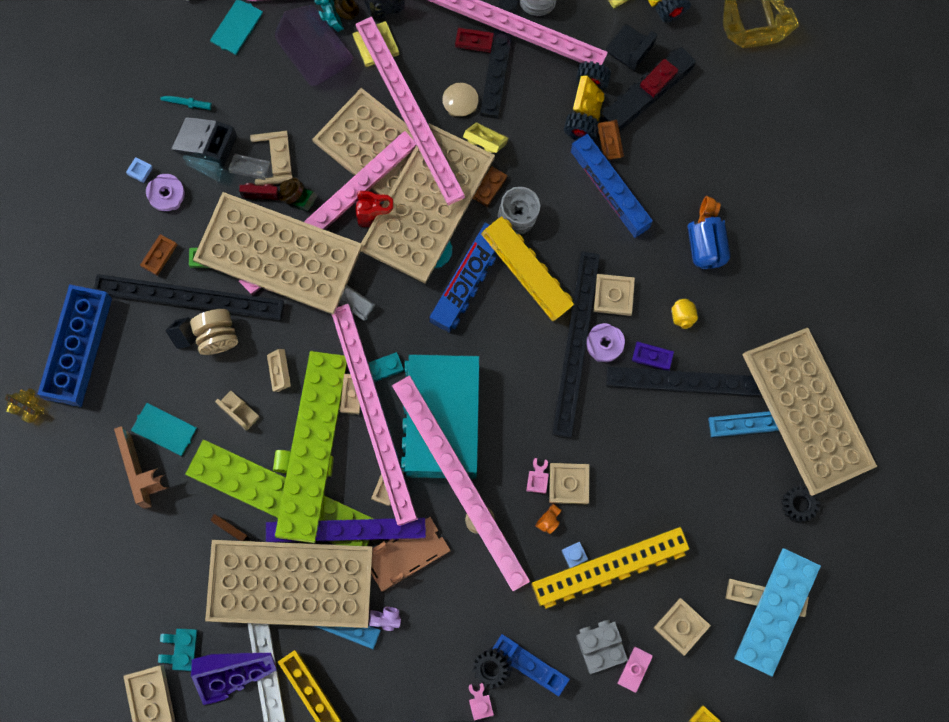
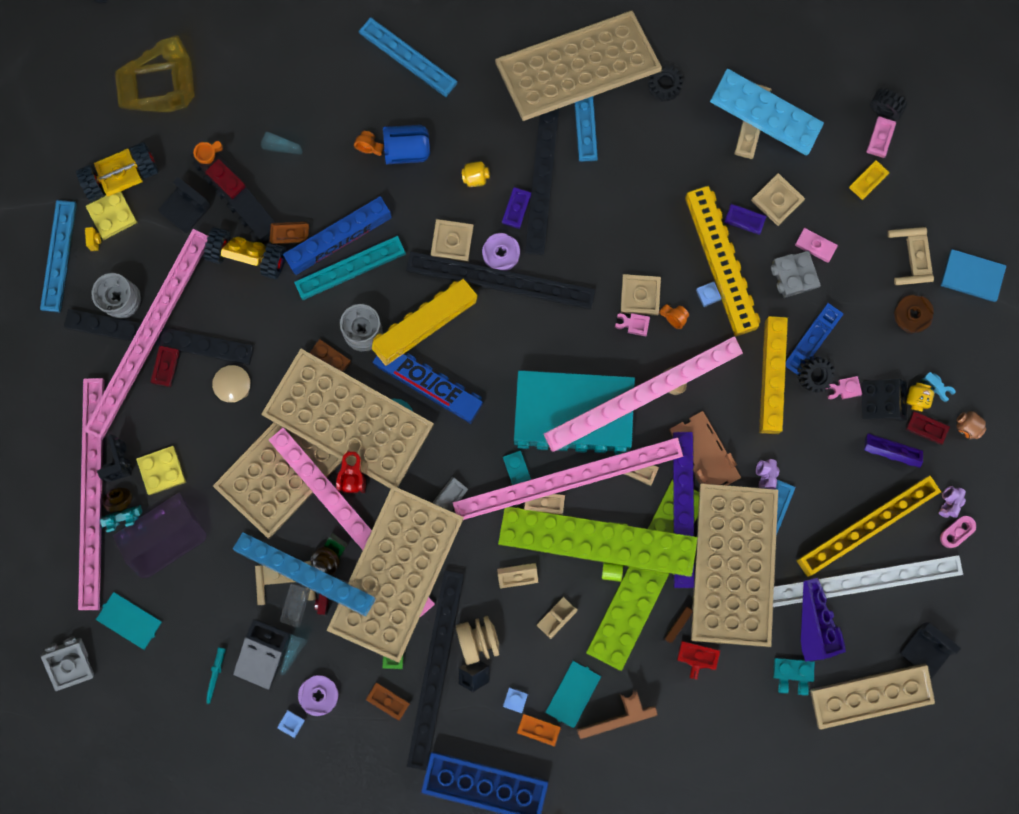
camera: 85 degrees left, 5 degrees up
(129, 396) = (538, 730): none -> orange plate
(158, 373) = (515, 700): none -> light blue plate
(197, 550) = (698, 657): none -> red plate
(275, 170) = (304, 574): none -> dark azure plate
(410, 111) = (245, 433): bright pink plate -> none
(485, 137) = (279, 357): light yellow plate -> none
(490, 623) = (773, 375): none -> yellow brick
(580, 200) = (350, 268): none -> teal plate
(657, 591) = (745, 219): none -> dark purple plate
(682, 57) = (205, 152): none -> orange piece
(701, 121) = (275, 143): none -> clear light blue slope
(803, 245) = (408, 57): none -> dark azure tile

